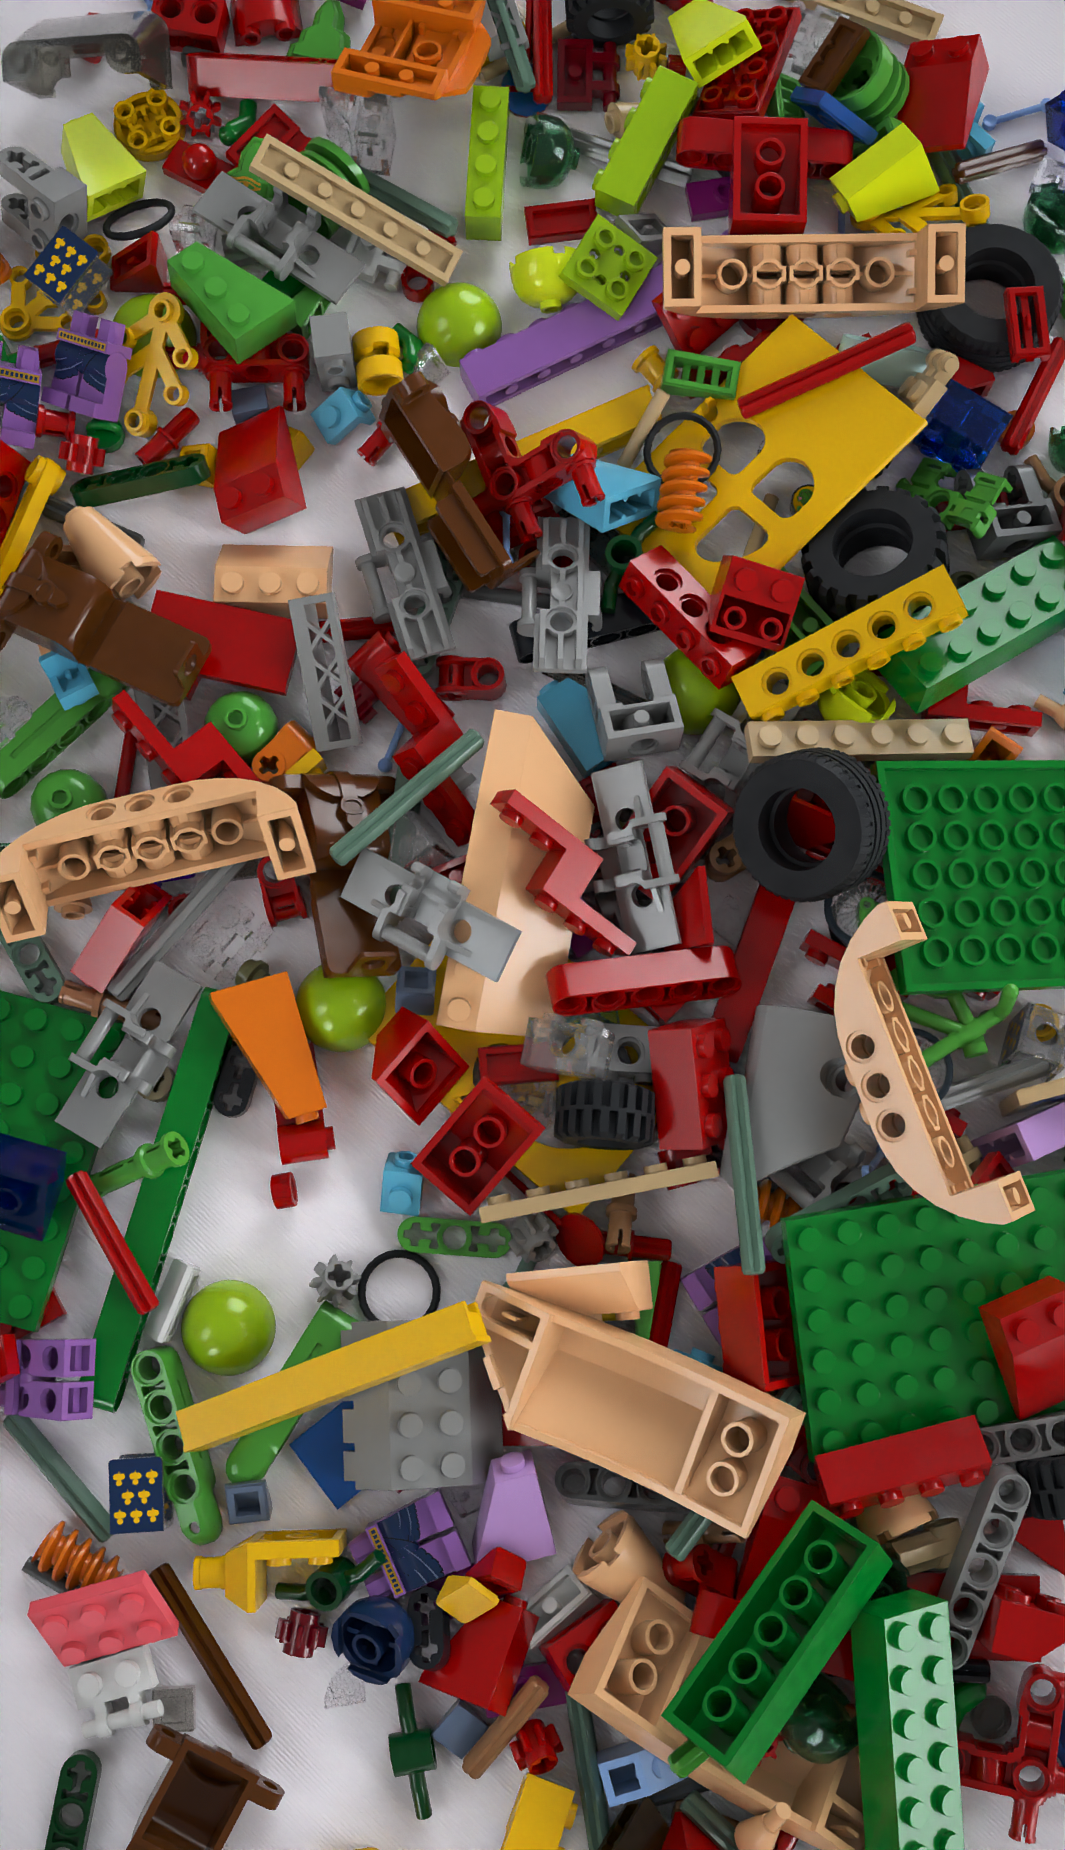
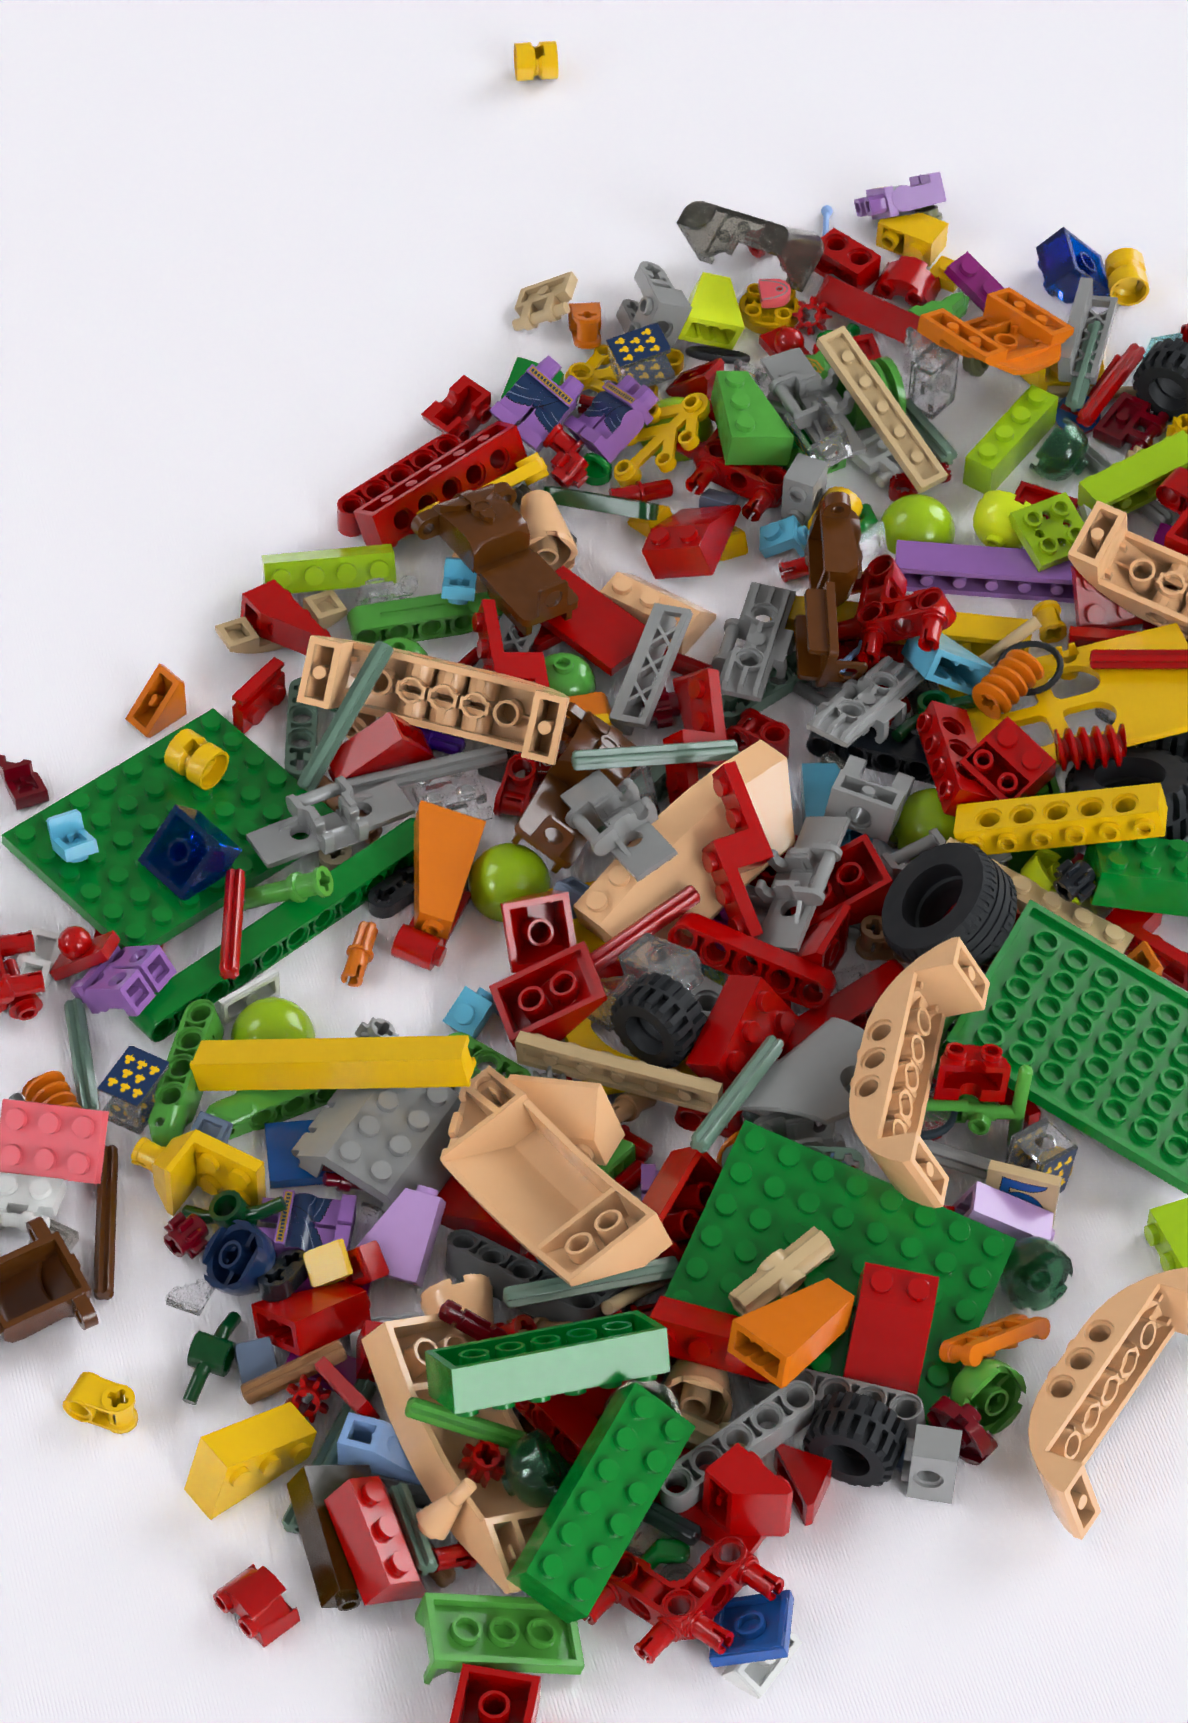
camera: 30 degrees right, 30 degrees down
(66, 927) = (345, 716): none -> sand green axle
(146, 107) = (773, 293): none -> coral tile
(251, 1180) = (359, 954): none -> orange axle
(284, 1190) = (380, 971): red axle -> none
(343, 280) = (816, 450): none -> clear piece
(520, 1011) = (650, 923): none -> red axle
(575, 1730) = (345, 1389): none -> red tile
(660, 1605) = (468, 1322): none -> dark red axle
(688, 361) = (1072, 615): bright green slope -> none
(821, 533) = (1090, 747): none -> red piece
(897, 705) = (1074, 880): none -> black gear
(916, 1366) = (782, 1272): none -> tan piece
(952, 1005) = (972, 1071): none -> red cylinder
(981, 1447) = (791, 1331): none -> orange slope

